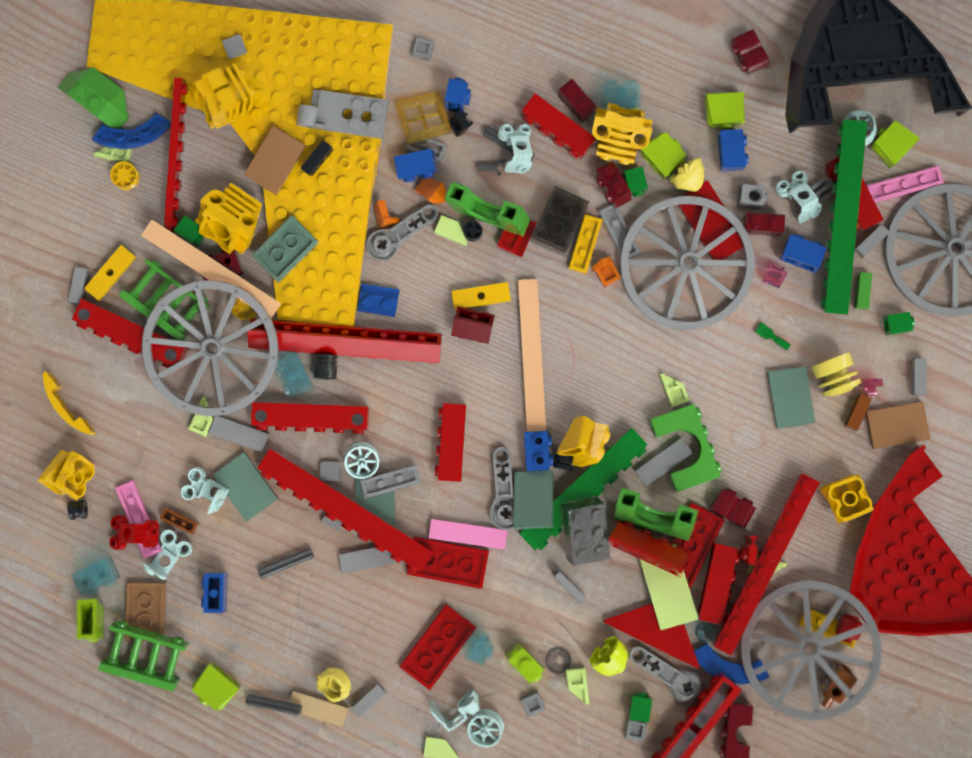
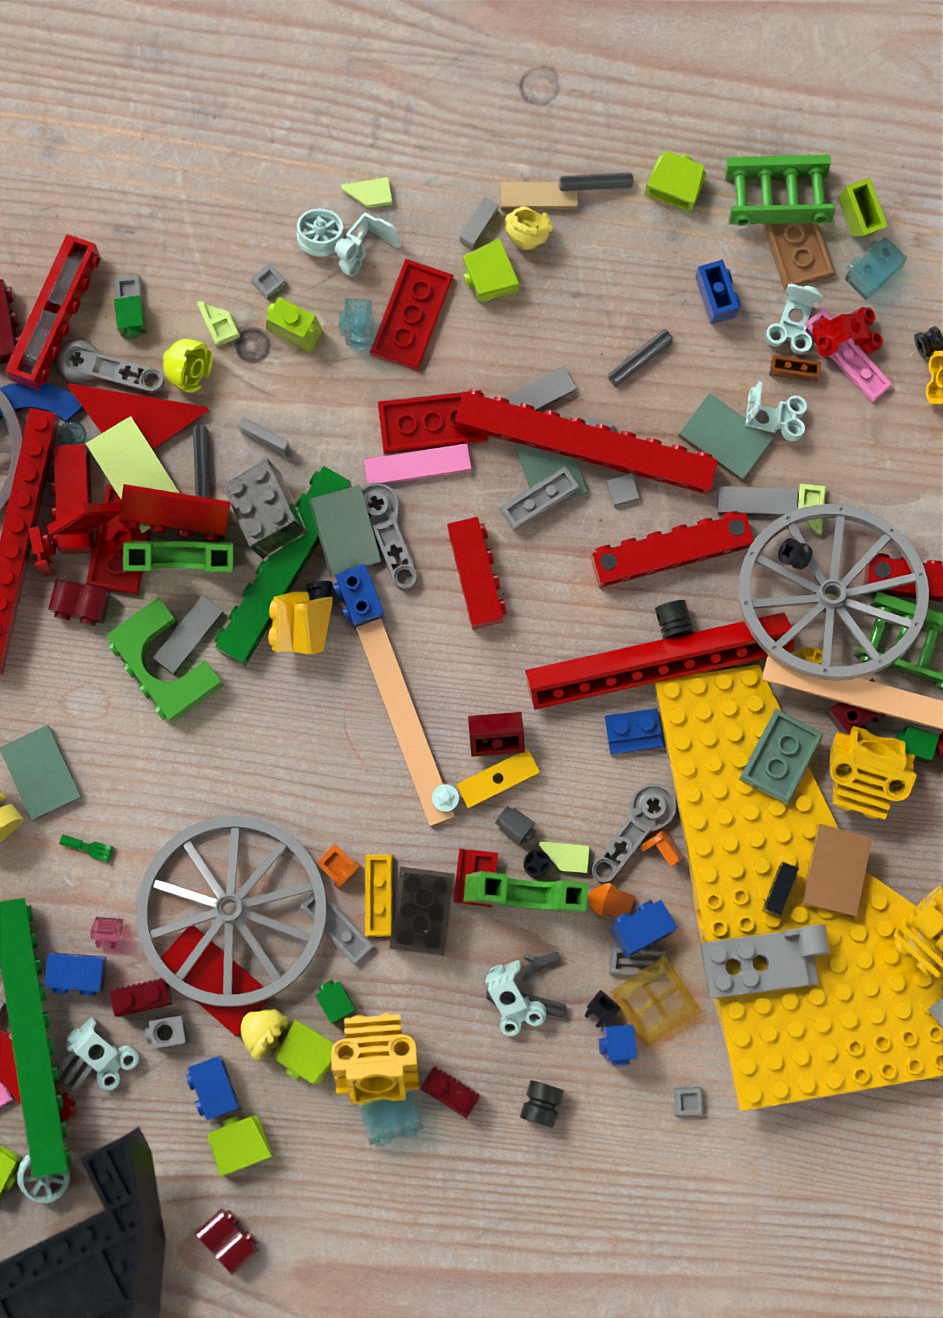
camera: 165 degrees right, 5 degrees down
(227, 382) = (795, 554): none -> black wheel
(294, 376) = (711, 594): clear light blue brick -> none
(361, 460) = (586, 513): light aqua wheel -> none
(372, 659) = (490, 272): none -> lime torso
(478, 260) = (516, 825): none -> dark grey brick
(520, 73) = (541, 1103): none -> pearl dark grey wheel
(521, 293) = (445, 798): none -> light aqua tile
(557, 126) = (466, 1047): red brick -> none
(613, 185) = (360, 982): dark red brick -> none
(619, 583) = (201, 461): none -> dark grey axle
(674, 390) = (199, 733): yellowish green tile -> none
(714, 557) = (84, 518): none -> red tile

